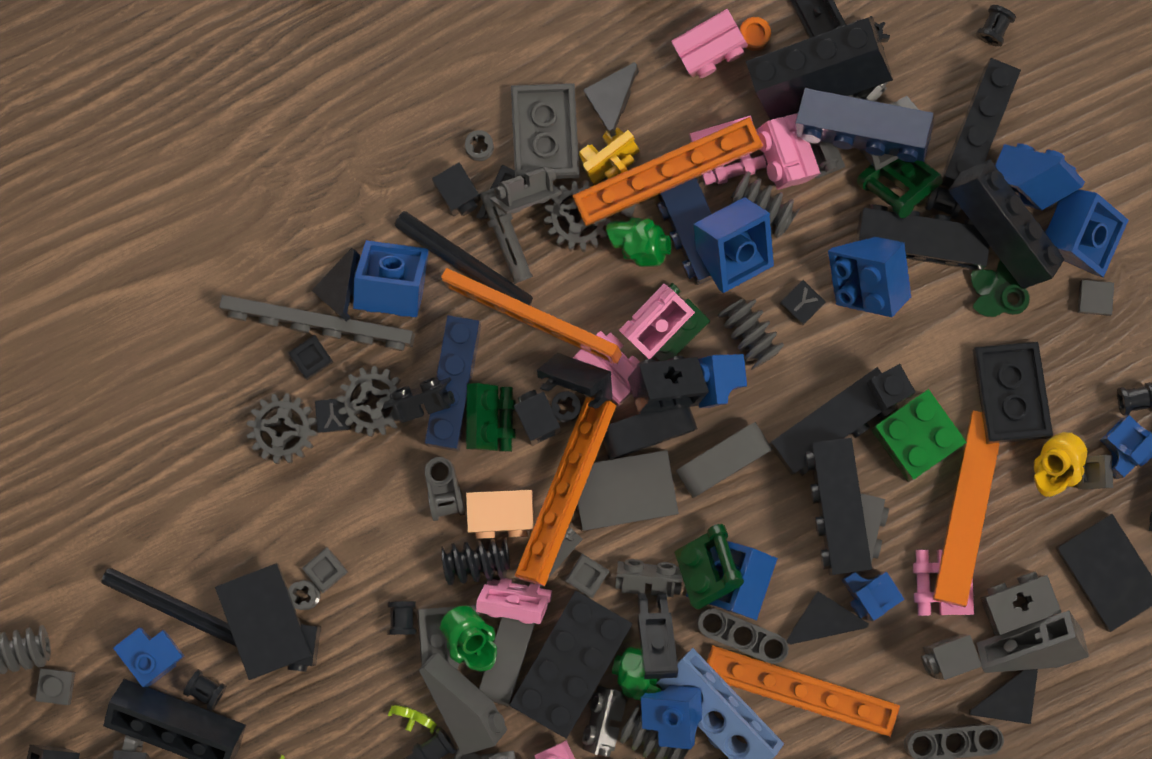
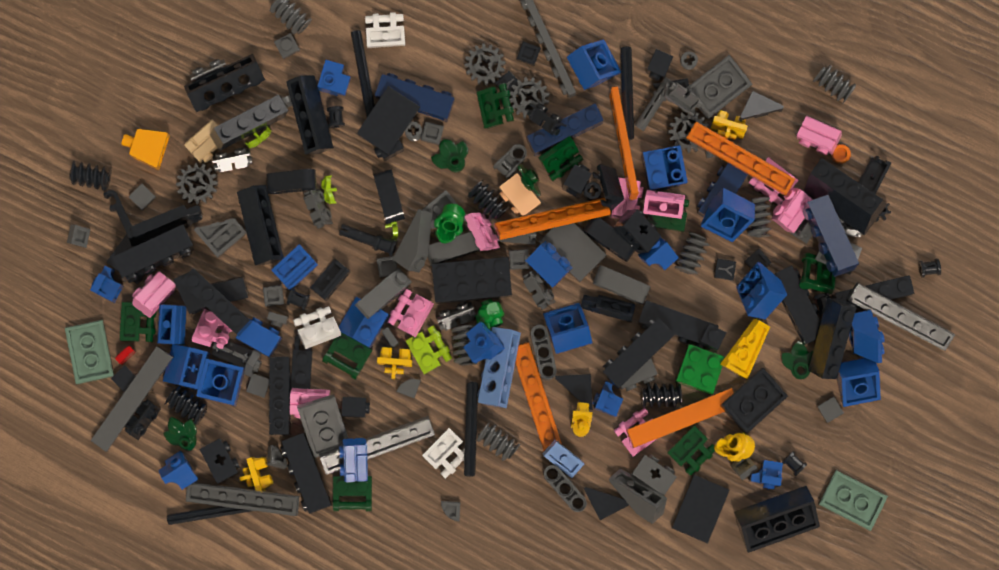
camera: 45 degrees right, 0 degrees up
(141, 539) = (385, 36): none -> white plate
(269, 545) = (431, 102): none -> dark blue brick
(338, 284) = (572, 41): black tile -> none
(347, 463) = (490, 106): none -> dark green plate
(370, 566) = (450, 152): none -> dark green plate
(370, 696) = (389, 196): none -> black beam
(401, 618) = (435, 185): black bush -> none
(487, 482) = (529, 179): none -> dark green plate
(605, 285) = (664, 168): none -> blue slope
(625, 539) = (549, 264): none -> blue brick
(640, 241) = (698, 169): green head -> none
(656, 639) = (512, 312): black hinge -> none
(700, 571) = (560, 309): dark green plate -> none
(744, 496) = (609, 307): none -> black hinge
(818, 247) = (757, 256): none -> black tile
(876, 651) = (581, 420): none -> yellow hips
(910, 714) = (563, 458): none -> medium blue plate
(916, 513) = (661, 395): none -> black piece
(937, 356) = (746, 349): none -> yellow wing
(951, 657) = (604, 457): dark grey brick -> none
(1012, 527) = (687, 446): none -> dark green plate
(1038, 110) = (901, 316): none -> tile

